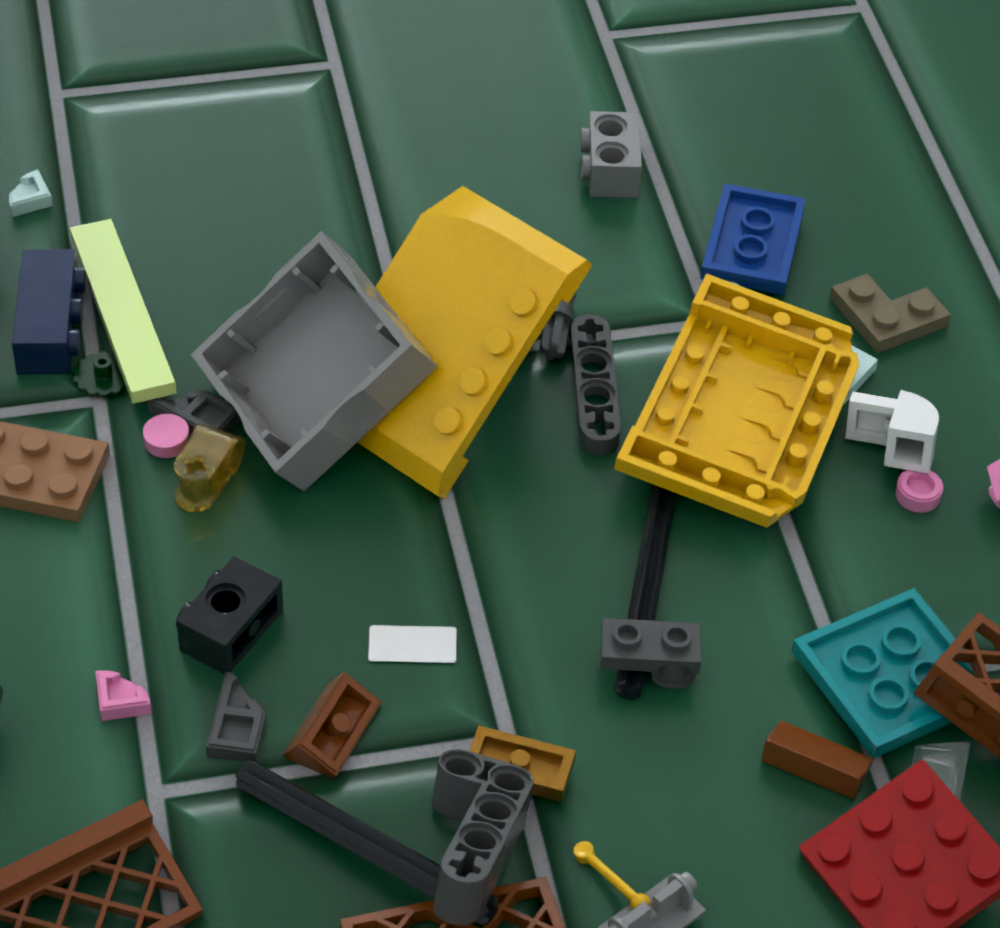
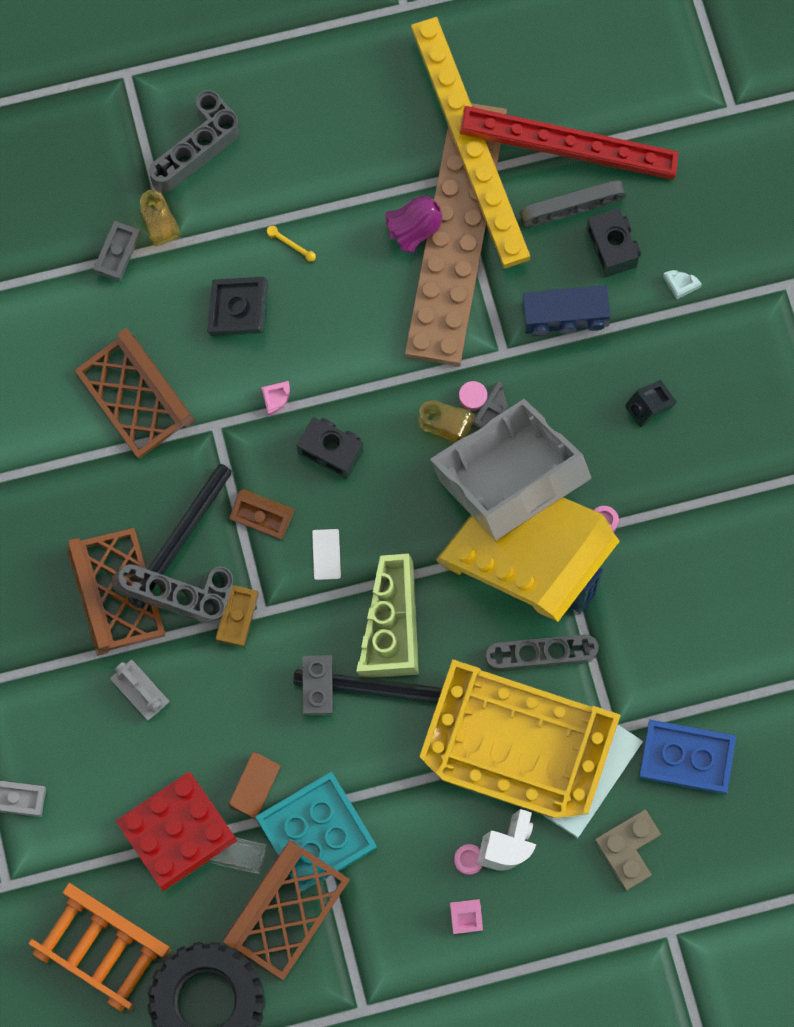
camera: 90 degrees right, 25 degrees up
(99, 375) = (523, 353): dark green piece -> none
(123, 312) = (574, 354): yellowish green tile -> none
(218, 235) = (650, 402): none -> black bracket
(236, 724) = (261, 461): dark grey tile -> none
(543, 543) = (391, 627): none -> yellowish green wedge
(556, 330) = (593, 626): dark grey axle -> none
(585, 854) = (184, 655): yellow hinge -> none
(613, 154) = (762, 666): light grey brick -> none

